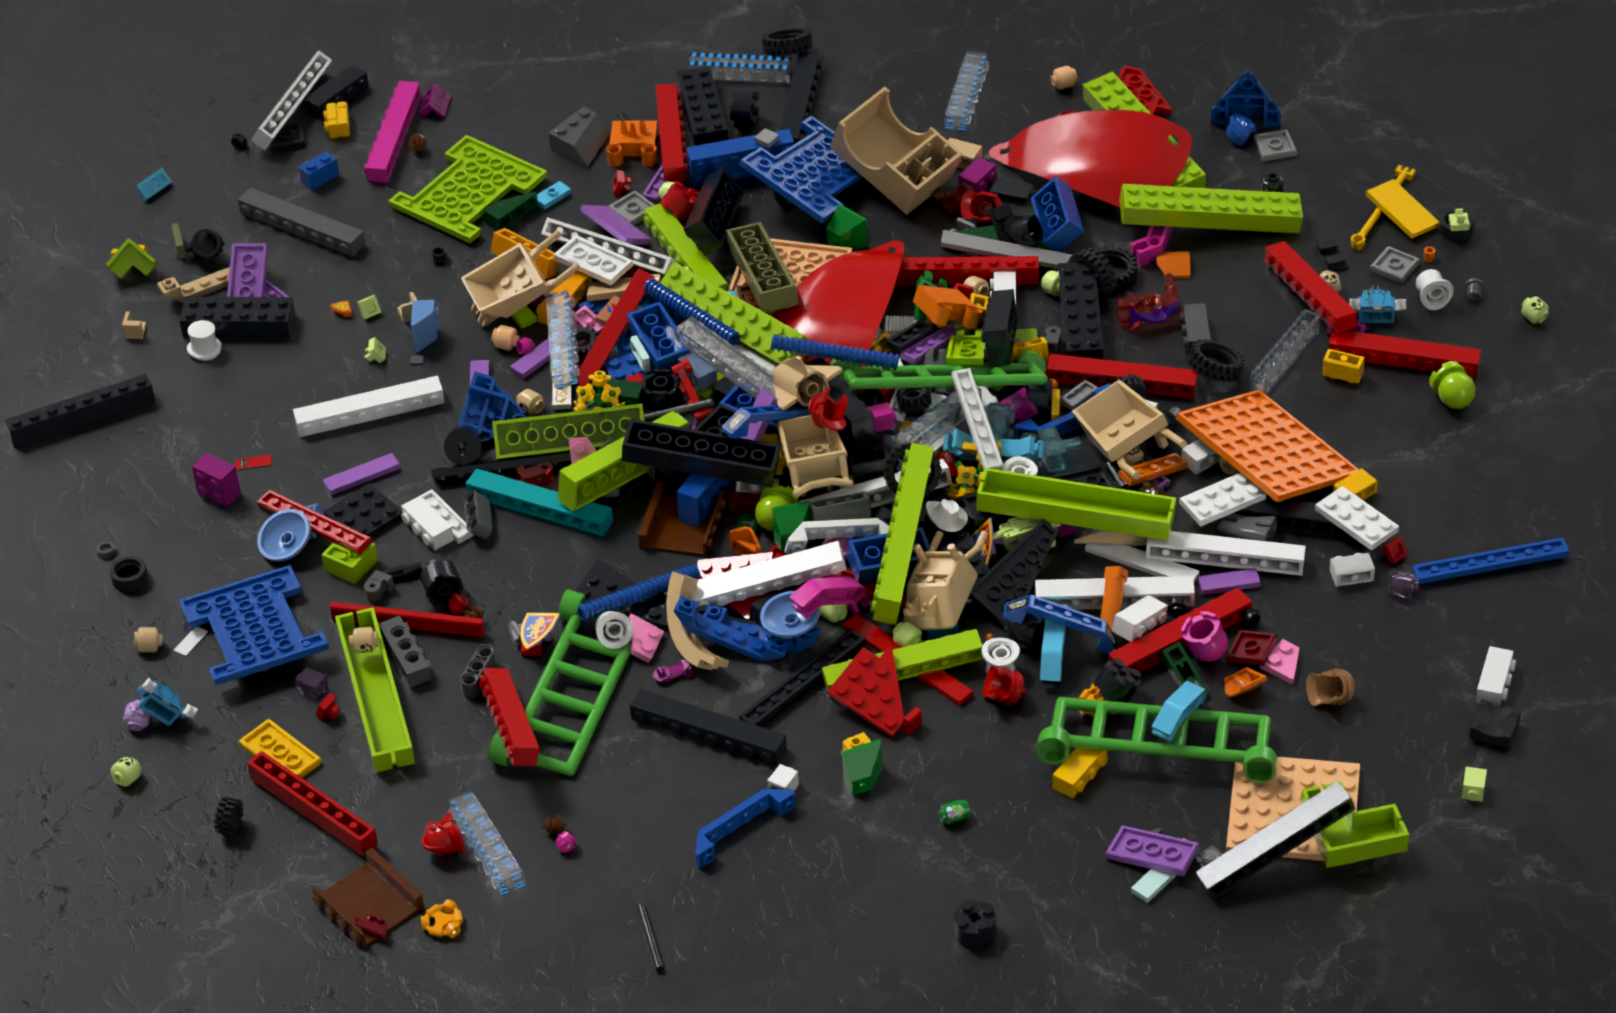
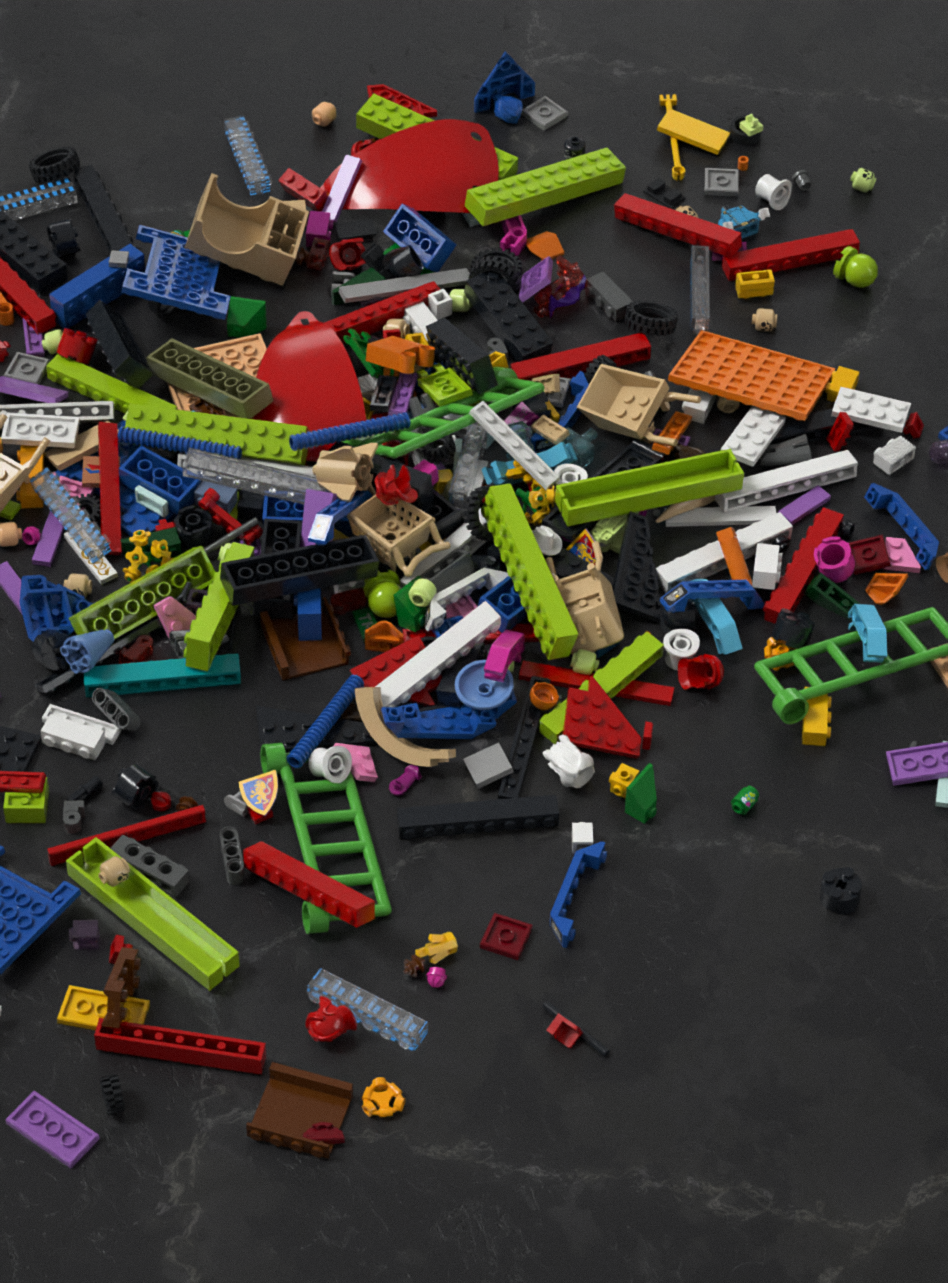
camera: 35 degrees left, 5 degrees up
(168, 825) = (52, 1129): none -> medium lavender tile
(295, 729) = (121, 985): none -> reddish brown piece
(485, 452) = (86, 649): none -> medium blue cone
(589, 820) = (439, 948): none -> yellow rock
(601, 442) = (185, 593): none -> black bar
(634, 931) = (564, 1031): none -> red panel
(653, 836) = (506, 936): none -> dark red tile
(751, 687) = (488, 765): none -> light grey tile
(797, 515) = (422, 592): none -> yellowish green head
(819, 713) = (570, 763): none -> white piece
(841, 647) = (543, 695): none -> orange hair
(989, 138) = (303, 190): none -> red brick
(1020, 145) = (342, 186): none -> tile
(1030, 279) = (440, 304): none -> white brick
(1034, 422) = (550, 430): none -> tan plate
(1067, 383) = (550, 382): none -> tan plate
(1130, 286) = (536, 278): none -> medium lavender tile
(1305, 602) = (882, 497): none -> blue slope
(1311, 530) = (840, 431): none -> red plate
(1329, 402) = (764, 320): none -> tan head

